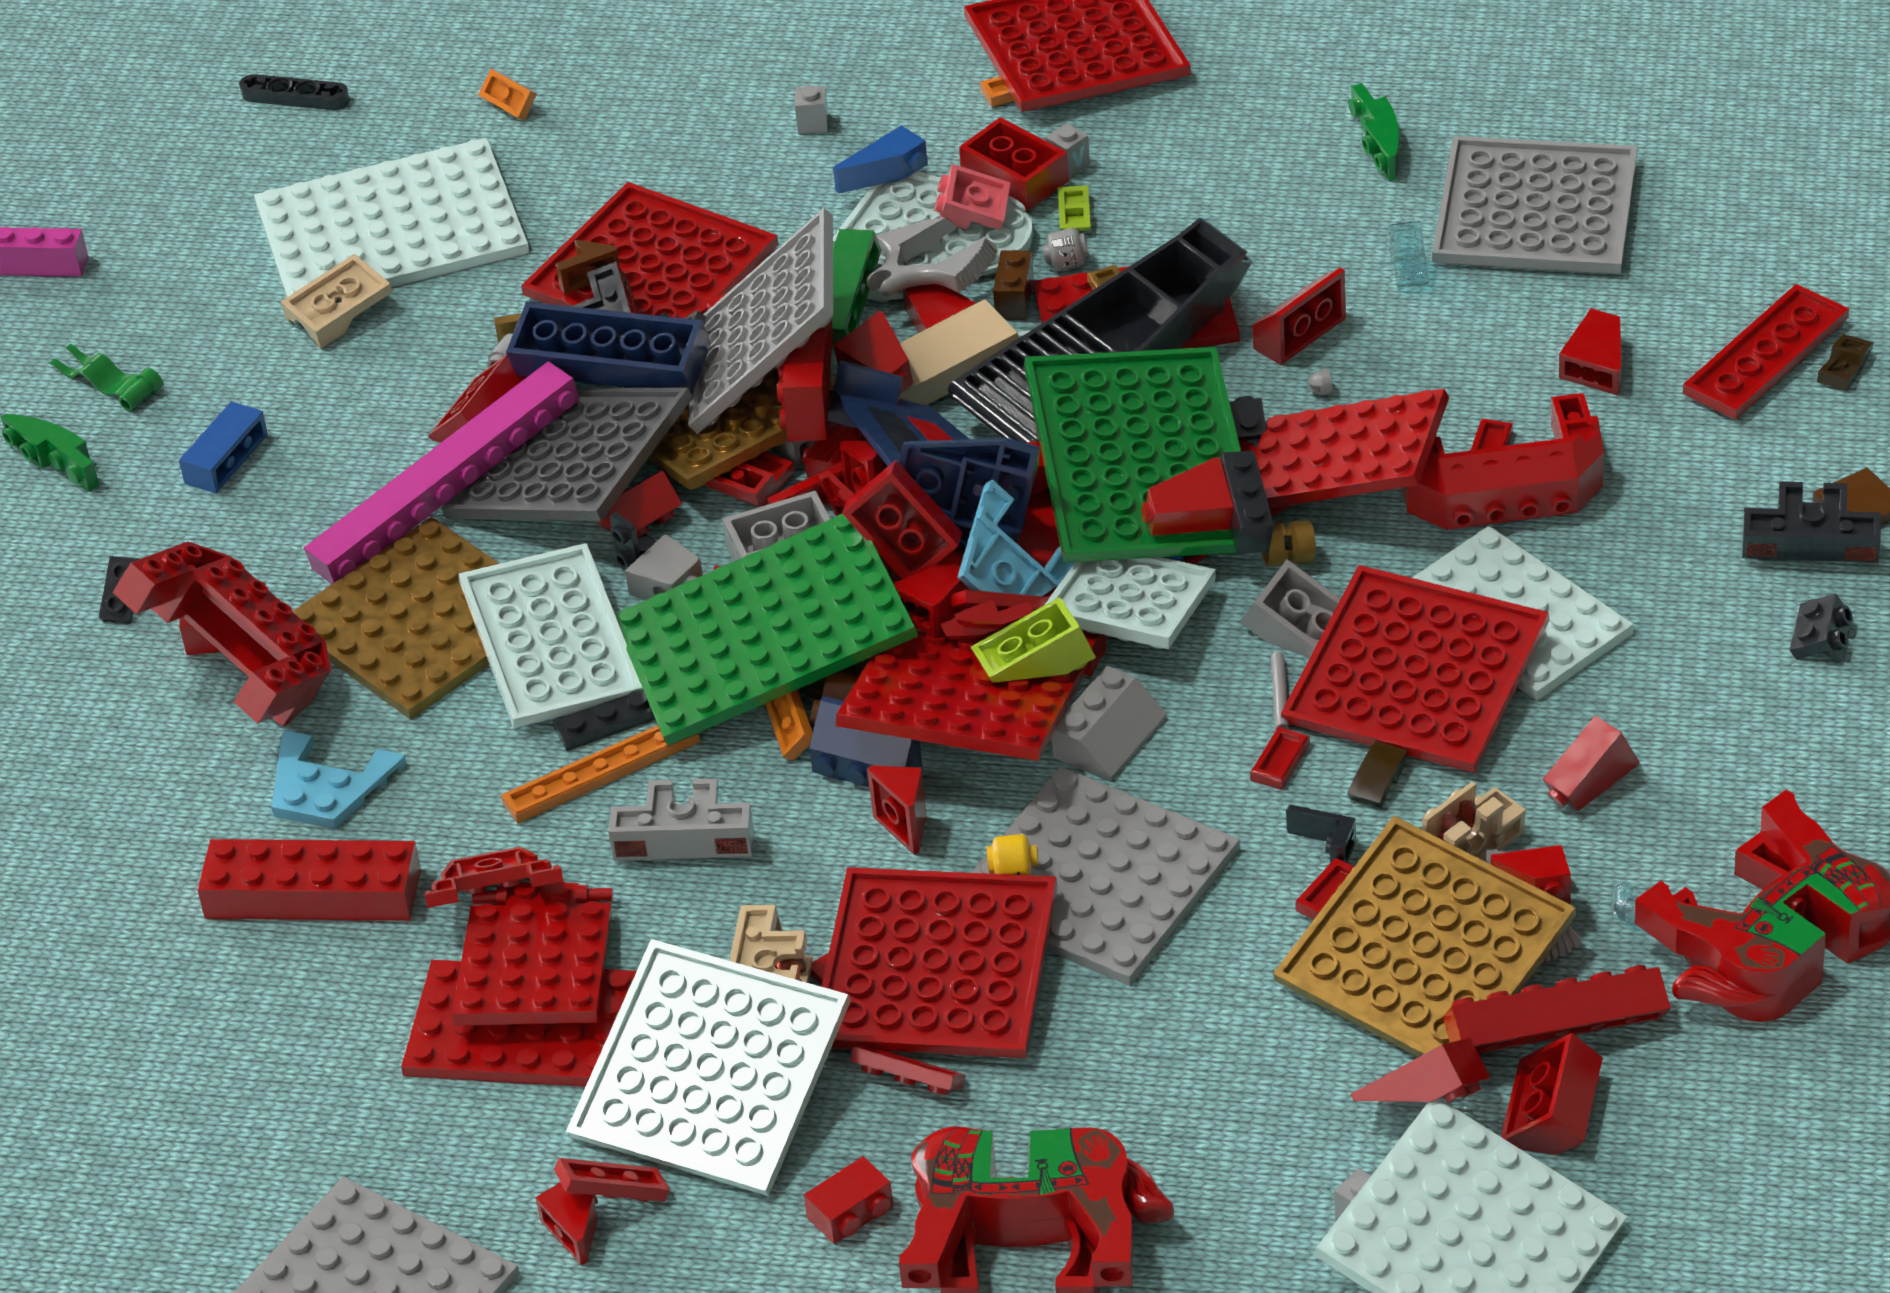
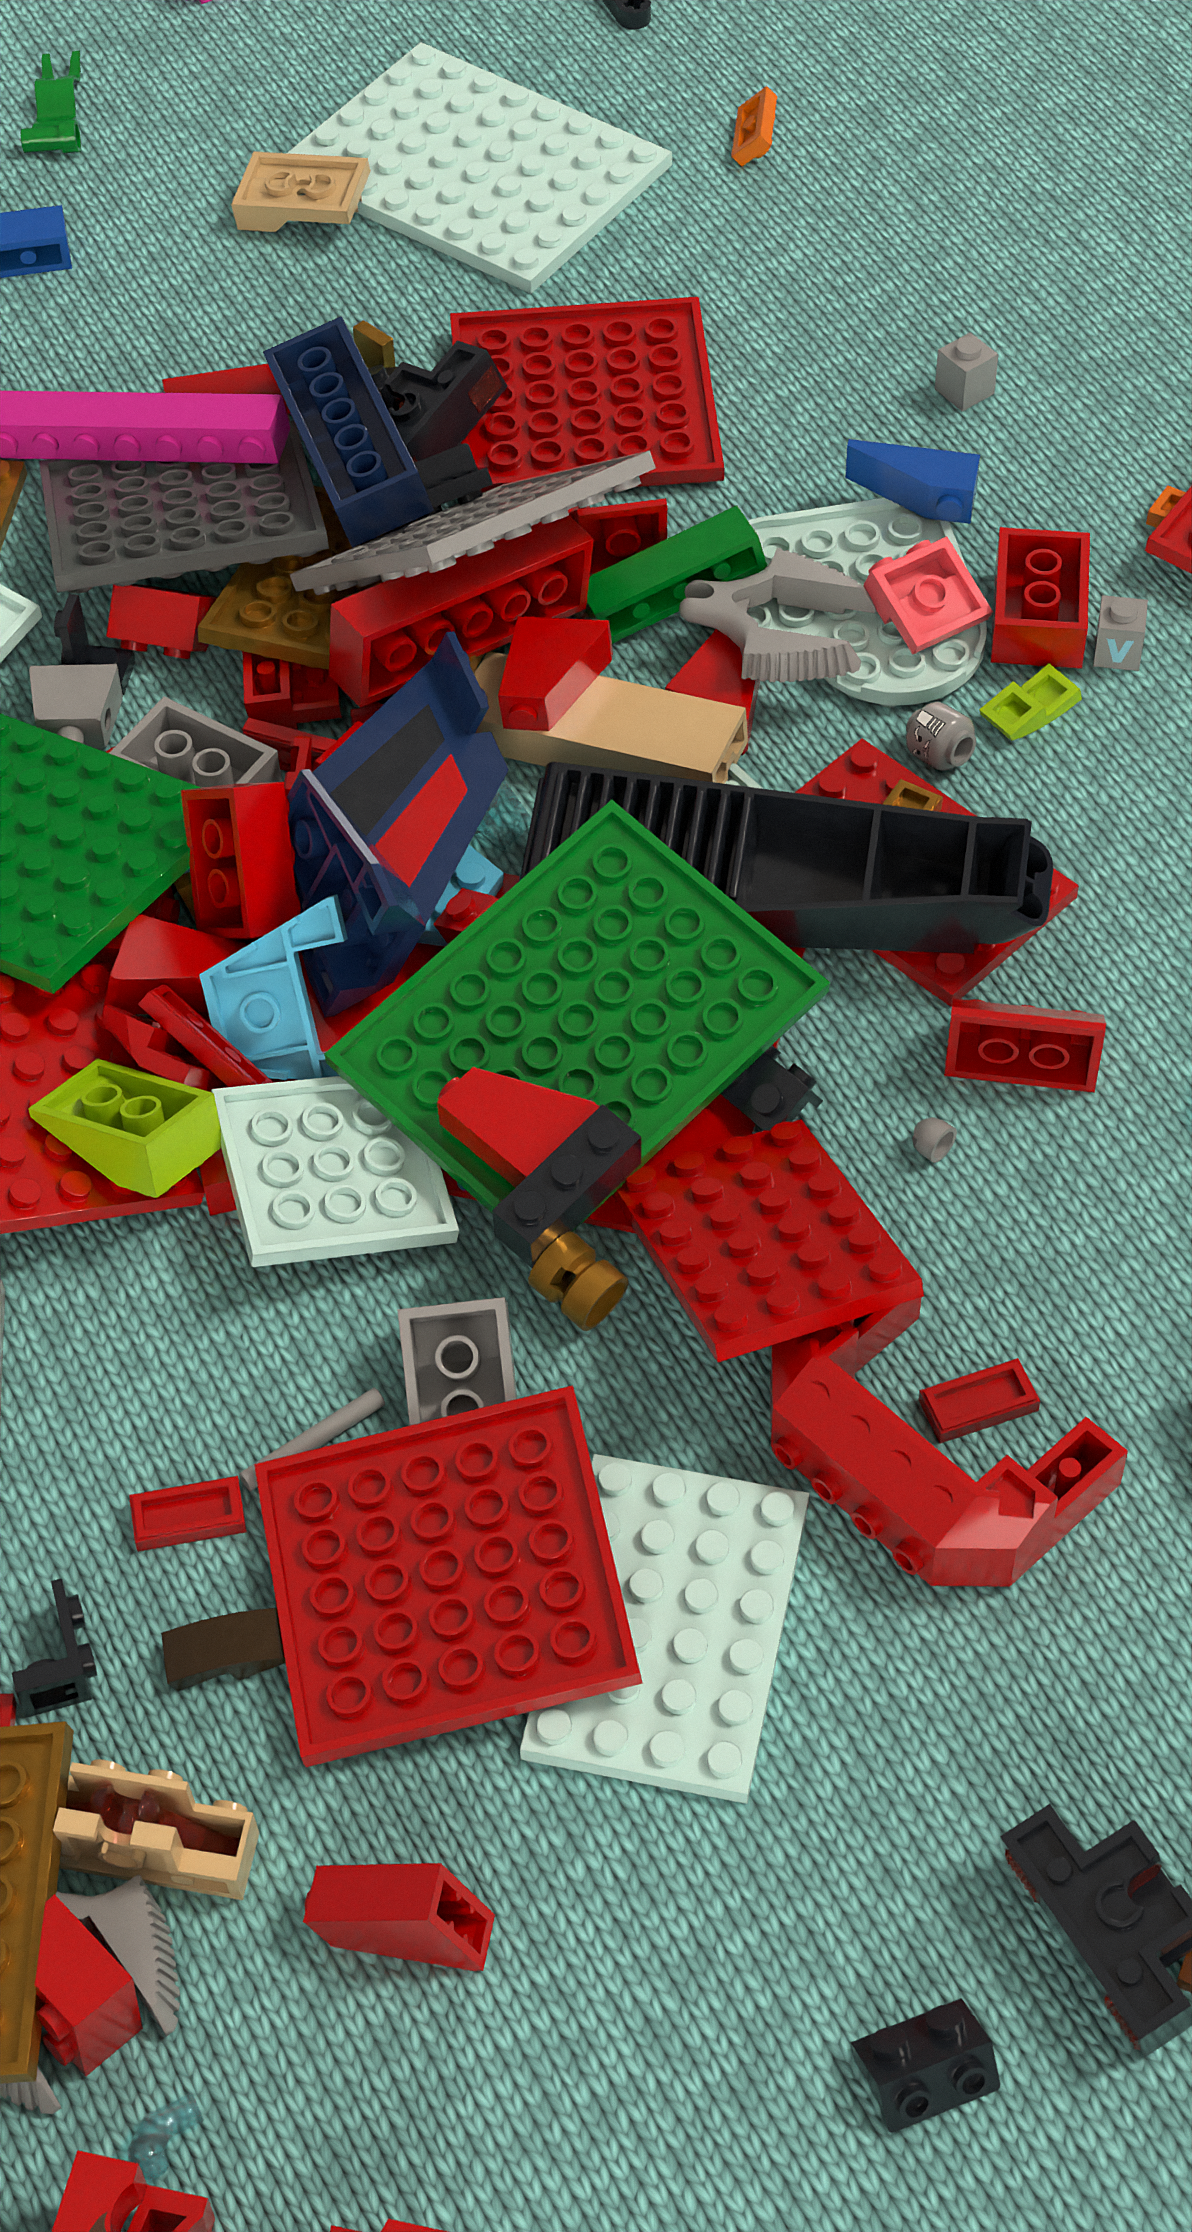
camera: 50 degrees right, 10 degrees up
(590, 256) = (511, 344): reddish brown slope -> none
(1013, 284) = (829, 723): reddish brown brick -> none
(1107, 725) = (105, 1285): light grey slope -> none

